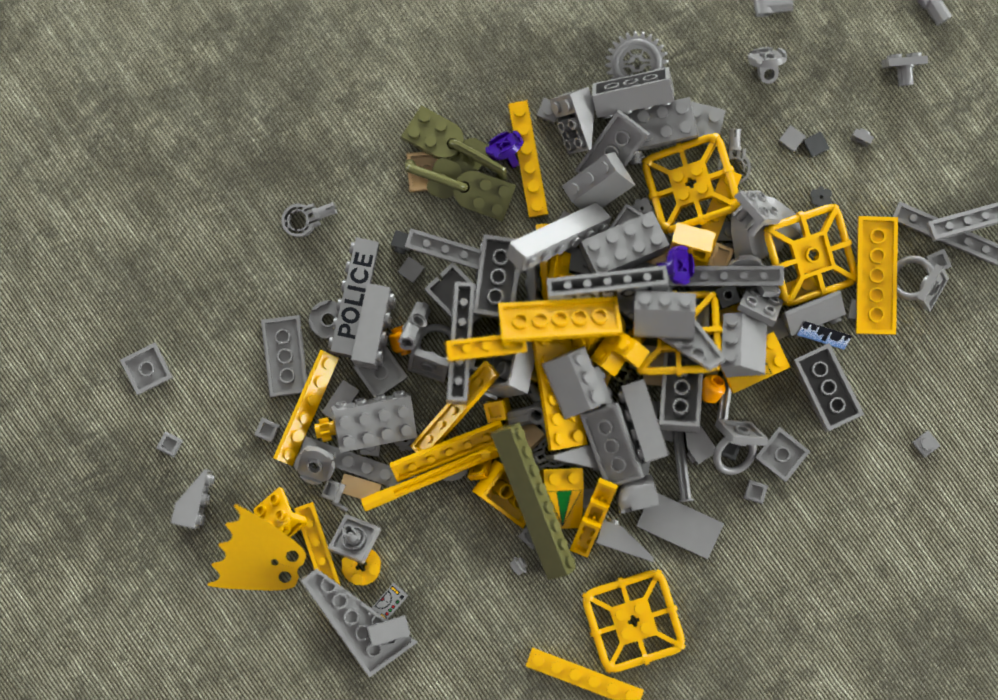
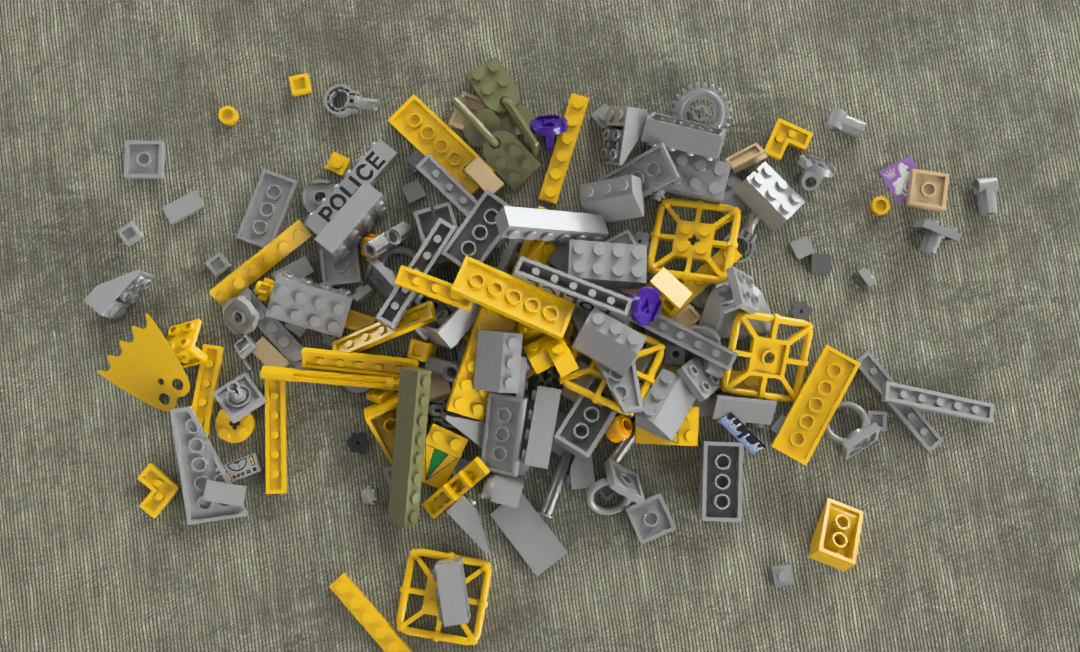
camera: 25 degrees right, 0 degrees up
(201, 288) = (228, 115): none -> yellow tile
(206, 393) = (183, 207): none -> light grey tile
(253, 225) = (300, 84): none -> yellow plate
(327, 280) = (338, 164): none -> yellow plate
(328, 660) = (161, 488): none -> yellow plate
(405, 557) = (275, 437): none -> yellow plate
(406, 210) = (433, 136): none -> yellow plate
(414, 386) = (362, 292): none -> light grey plate
(425, 414) = (358, 321): none -> yellow tile
(469, 223) = (483, 176): none -> tan tile
(483, 518) = (352, 442): none -> black plant
(640, 608) = (452, 591): none -> light grey piece
(698, 82) = (746, 157): none -> tan tile
(722, 43) = (786, 134): none -> yellow plate
(738, 108) = (769, 196): none -> light grey piece
(755, 491) = (610, 538): light grey tile -> none
(843, 63) = (879, 206): none -> yellow tile
(852, 26) = (897, 177): none -> sticker
(878, 26) = (927, 190): none -> tan tile
(955, 382) = (837, 535): none -> yellow slope

